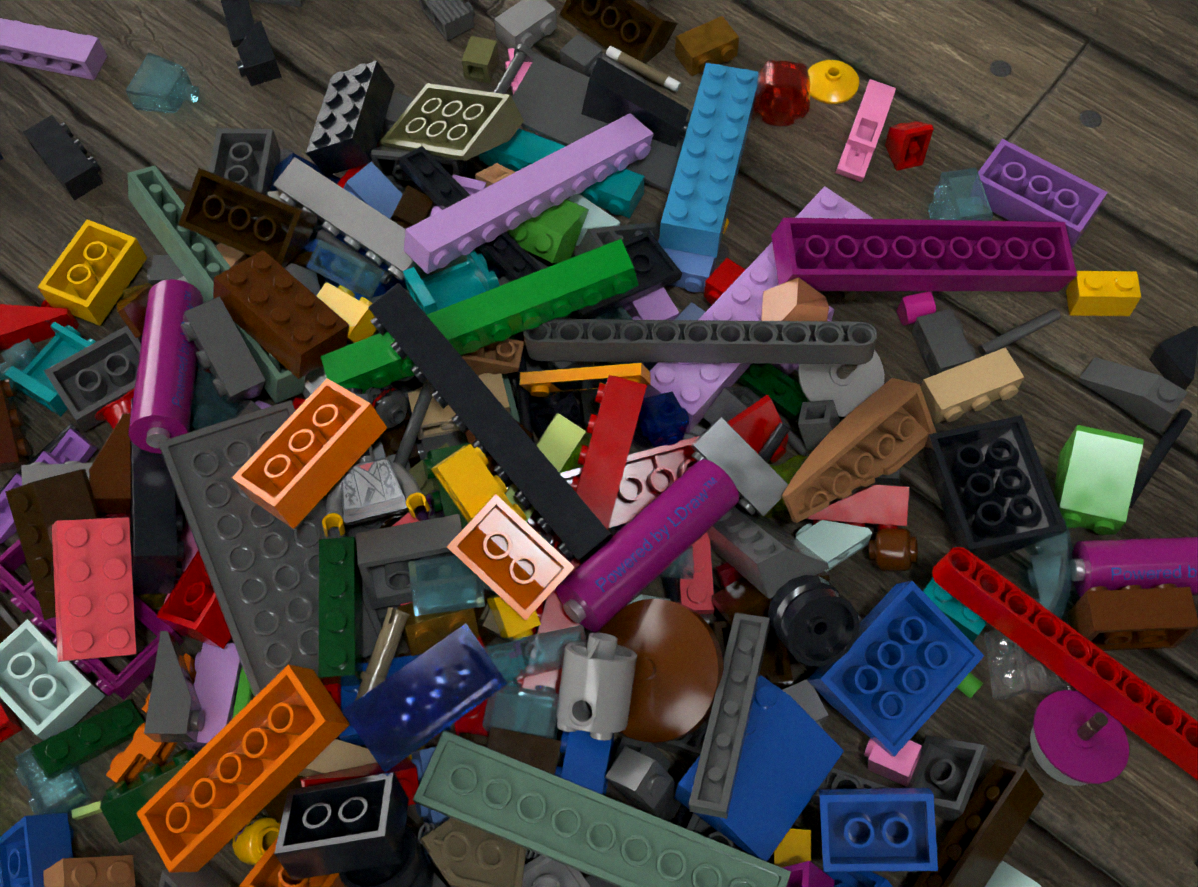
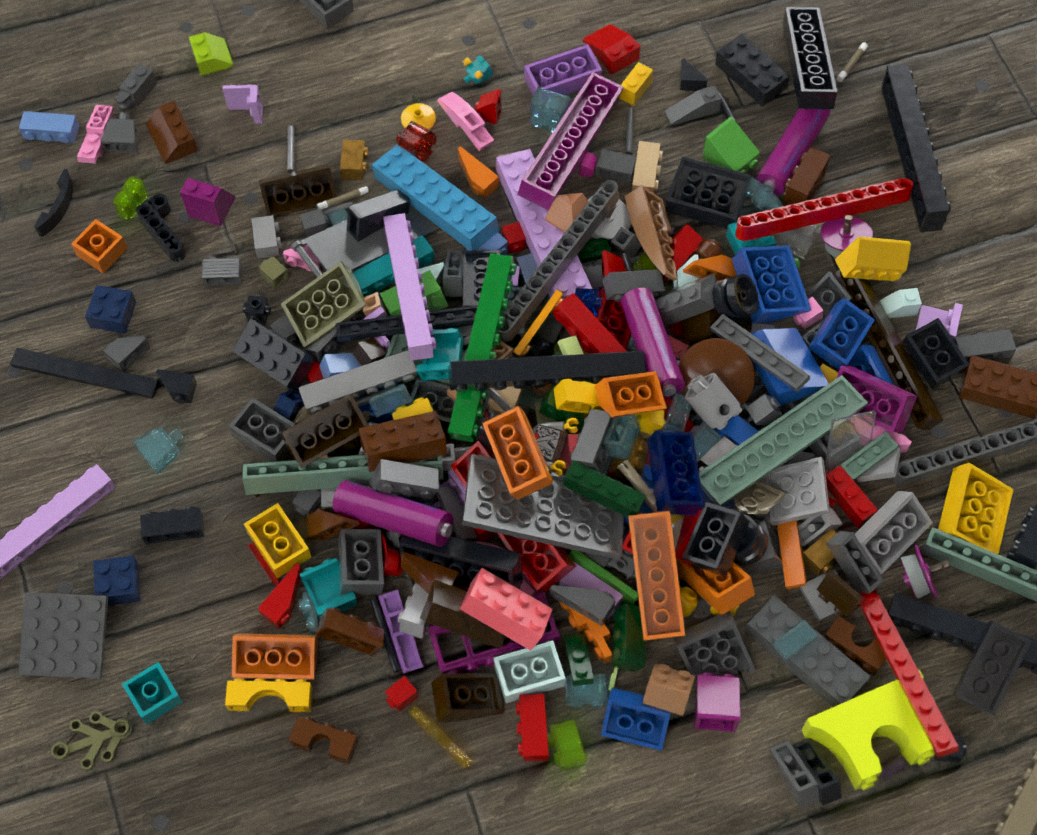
camera: 60 degrees left, 0 degrees up
(413, 71) = (257, 308): none -> black brick
(790, 187) = (480, 178): none -> orange slope
(863, 570) = (719, 265): none -> orange slope
(957, 99) = (477, 71): none -> teal piece
(1059, 808) = (874, 259): none -> yellow slope
(1139, 235) = (613, 48): none -> red slope

